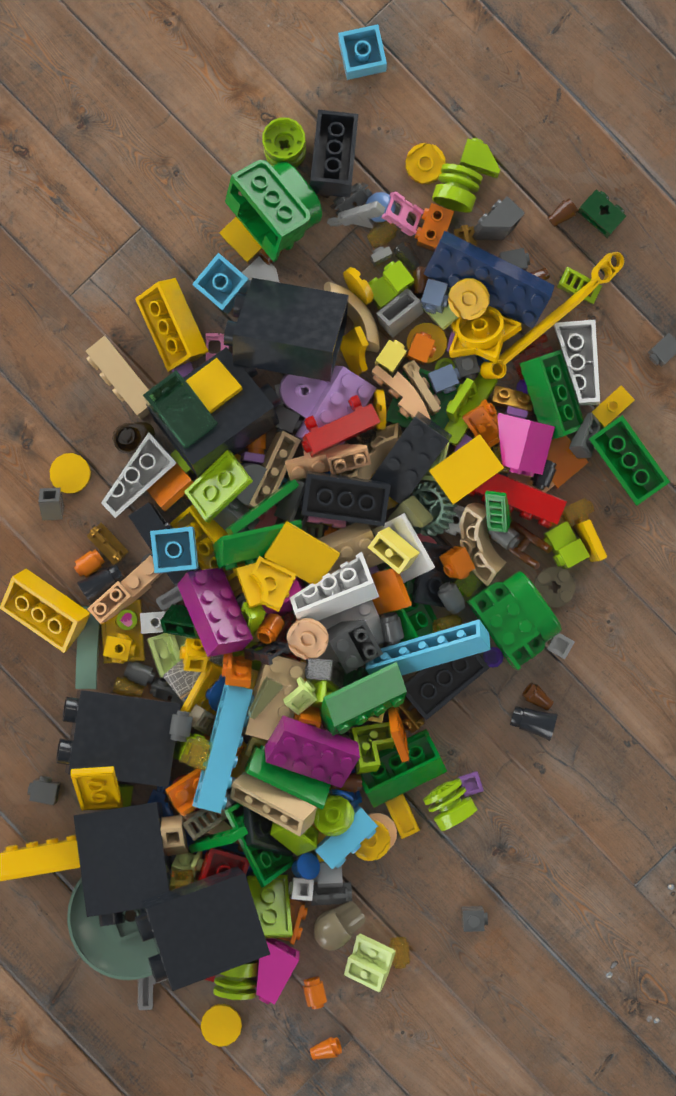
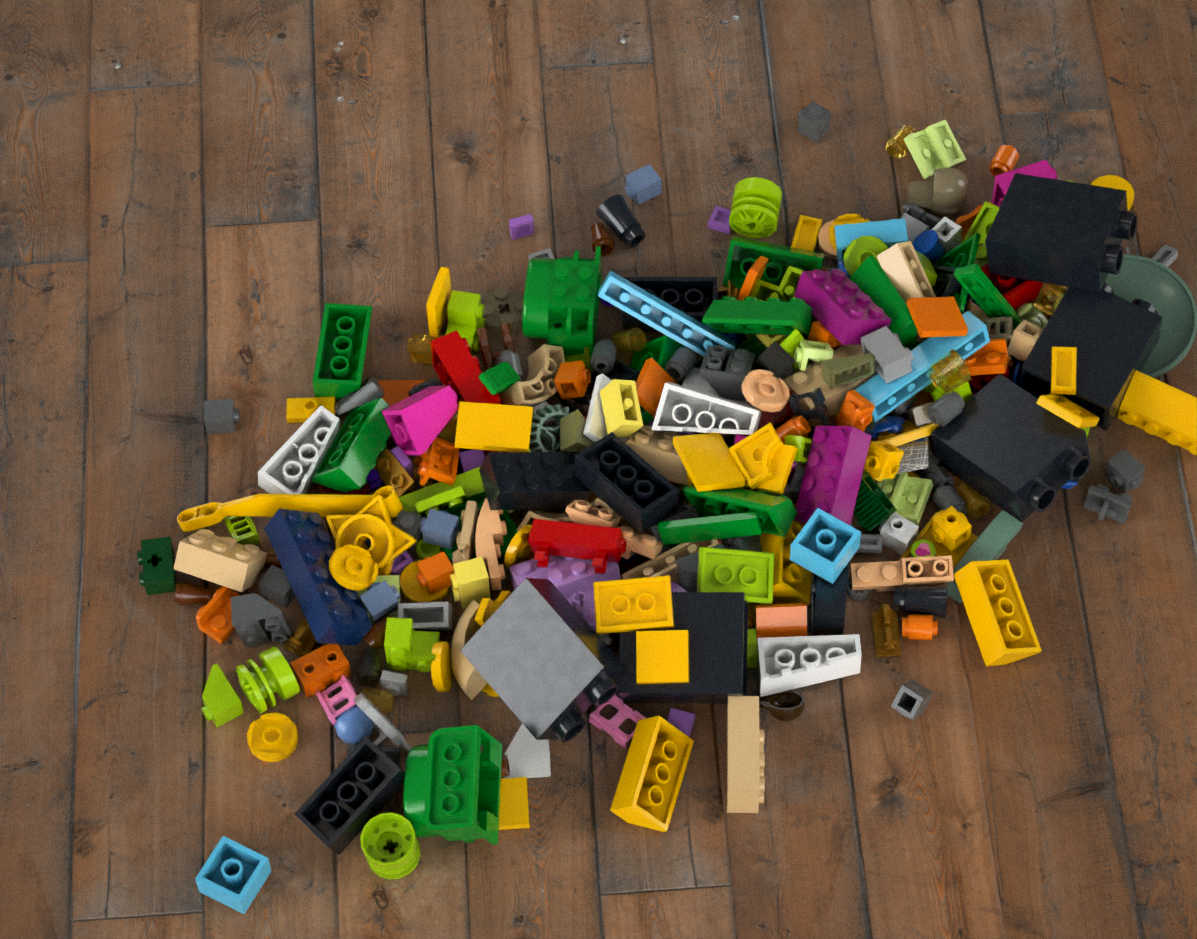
camera: 135 degrees left, 30 degrees down
(37, 753) = (1108, 504): none -> dark grey hips
(70, 473) = (870, 721): yellow tile -> none
(124, 820) = (1063, 370): none -> yellow tile
(180, 409) = (713, 650): clear green slope -> none
(221, 283) = (568, 768): medium azure brick -> none
(233, 786) = (937, 317): none -> orange tile
(246, 730) = (890, 357): none -> light grey piece
(258, 403) = (633, 604): none -> yellow tile
(327, 1049) = (1029, 117): orange cone -> none
(532, 223) = (216, 616): none -> orange bracket
(545, 763) = (643, 184): none -> sand blue brick
(562, 241) = (220, 560): none -> tan brick
(599, 661) = (521, 227): none -> medium lavender tile

